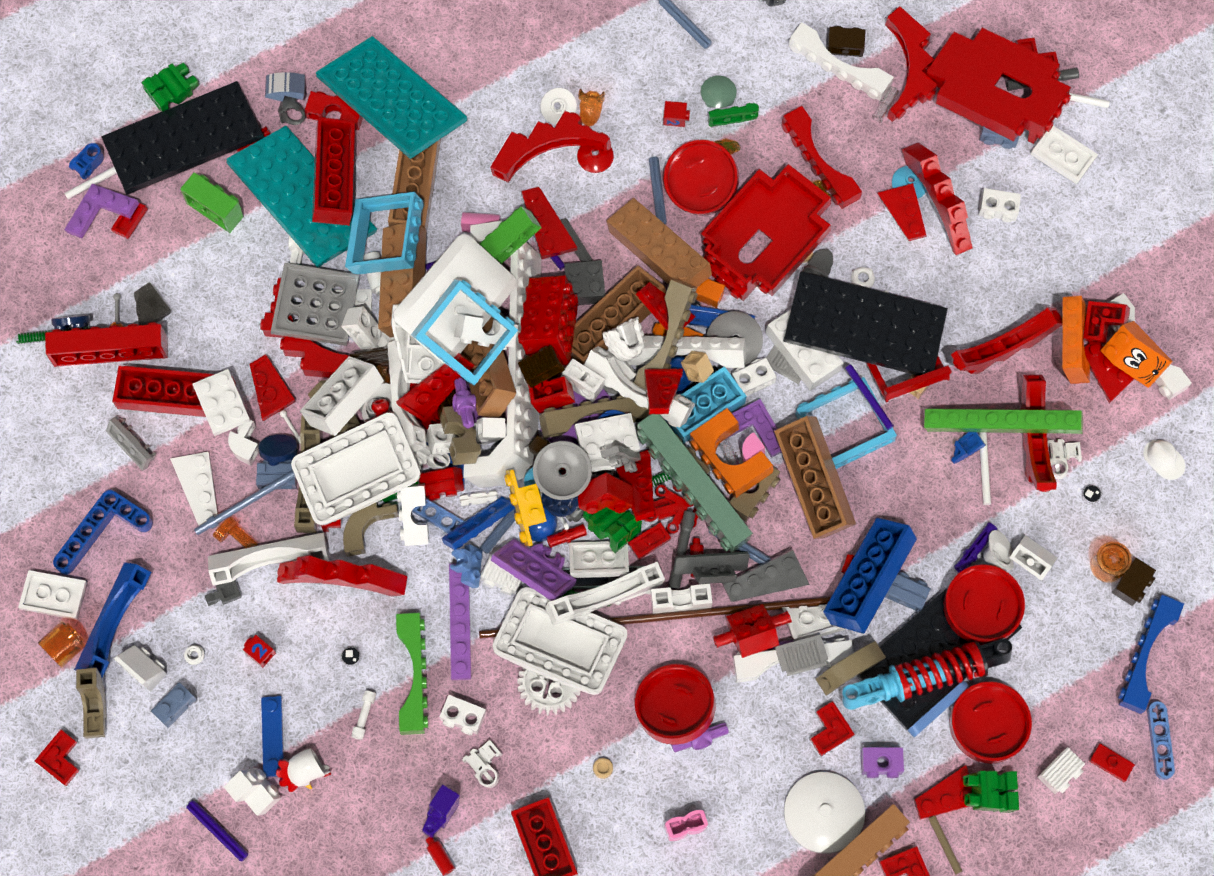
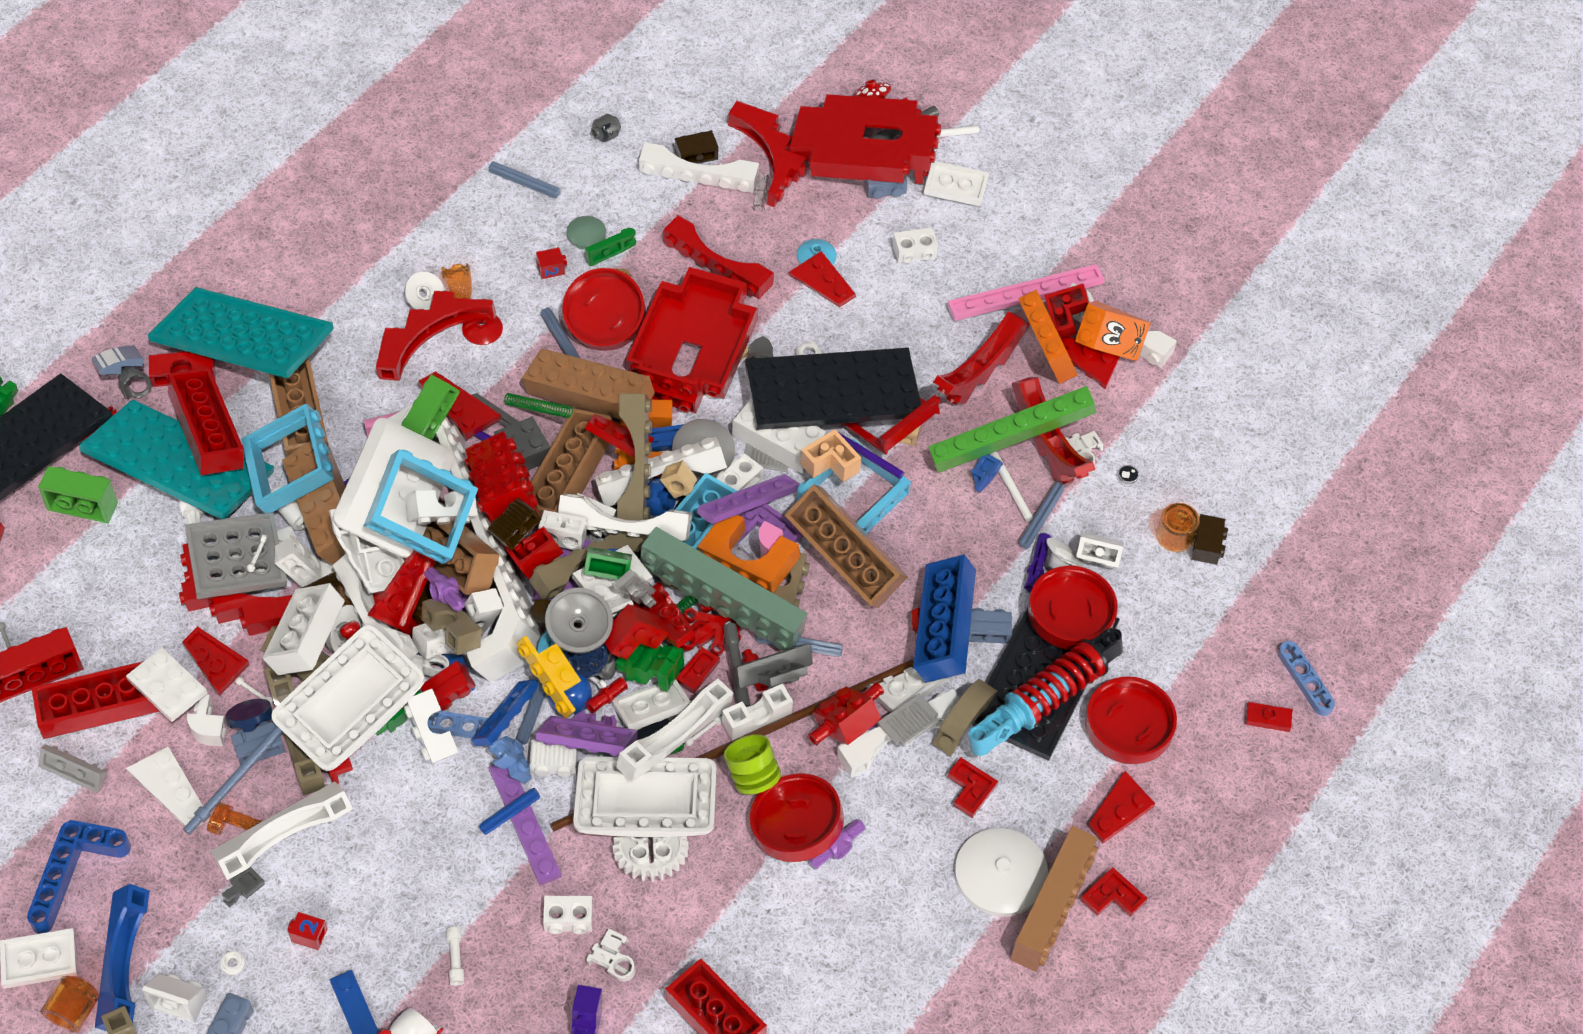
camera: 25 degrees left, 15 degrees down
(150, 305) = (43, 618): clear smoke wing -> none
(322, 321) = (250, 567): none -> white hinge
(339, 572) = (373, 809): red arch -> none
(351, 656) = (416, 901): tile -> none
(359, 522) = (373, 754): dark tan arch -> none
(411, 715) = (474, 853): bright green arch -> none
(449, 610) = (509, 811): none -> blue axle
(478, 498) = (493, 691): white axle -> none
(603, 768) = (745, 914): tan tile -> none
(605, 428) = (607, 563): none -> green brick
(606, 250) = (539, 409): none -> green piece
(625, 340) = (593, 476): white hair -> none
(656, 645) = (752, 764): none -> lime wheel
(661, 388) = (651, 506): red wing -> none
(680, 827) = (862, 935): bright pink brick -> none
(749, 404) = (747, 498): none -> medium lavender plate
(770, 577) = (841, 660): dark grey wing -> none
(835, 387) = (833, 453): none -> light nougat brick
(893, 757) = (1046, 788): medium lavender brick -> none
(939, 186) = (850, 241): red arch -> none
(940, 707) = (1071, 727): medium blue beam -> none
(945, 845) = (1140, 857): dark tan bar -> none
(986, 791) = (1165, 784): green hips -> none
(998, 505) = (1041, 515): none -> sand blue axle
(1027, 34) = (873, 89): none -> red dish
(1061, 771) = (1223, 740): white brick -> none
(1079, 285) = (1008, 296): none -> bright pink plate
(1136, 694) = (1260, 641): blue arch -> none
(1164, 459) = (1182, 420): white piece -> none

